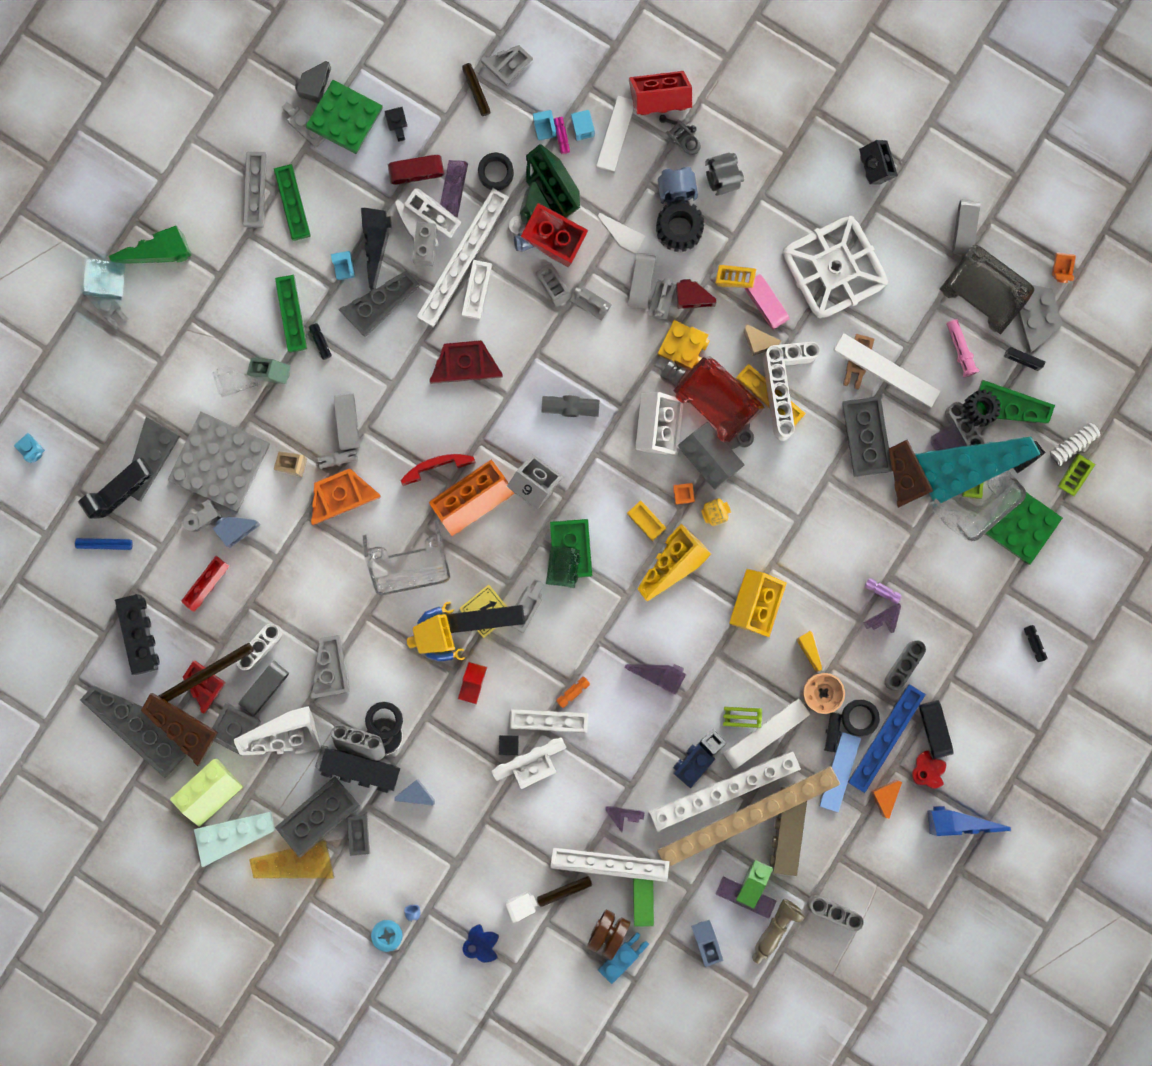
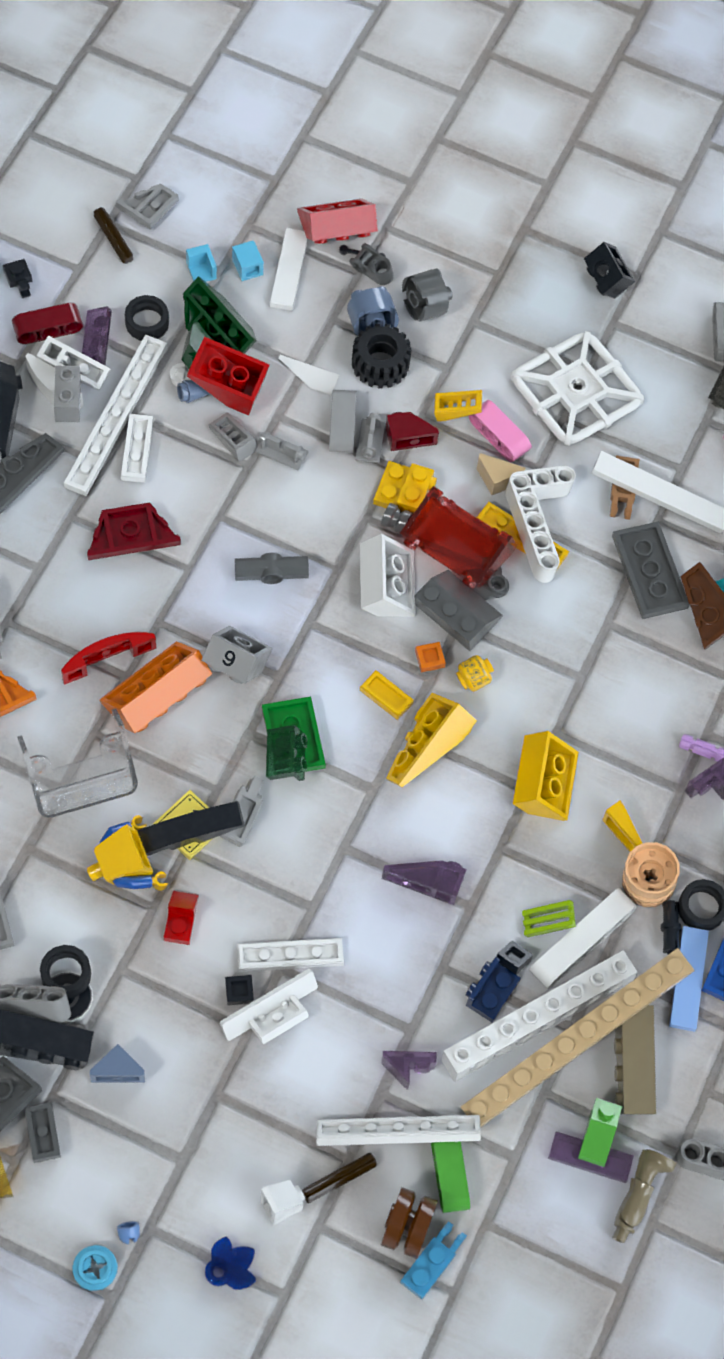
camera: 15 degrees left, 20 degrees down
(561, 135) = (224, 276): dark pink axle -> none
(573, 692) = (318, 913): orange axle -> none
(707, 943) = (548, 1223): sand blue slope -> none

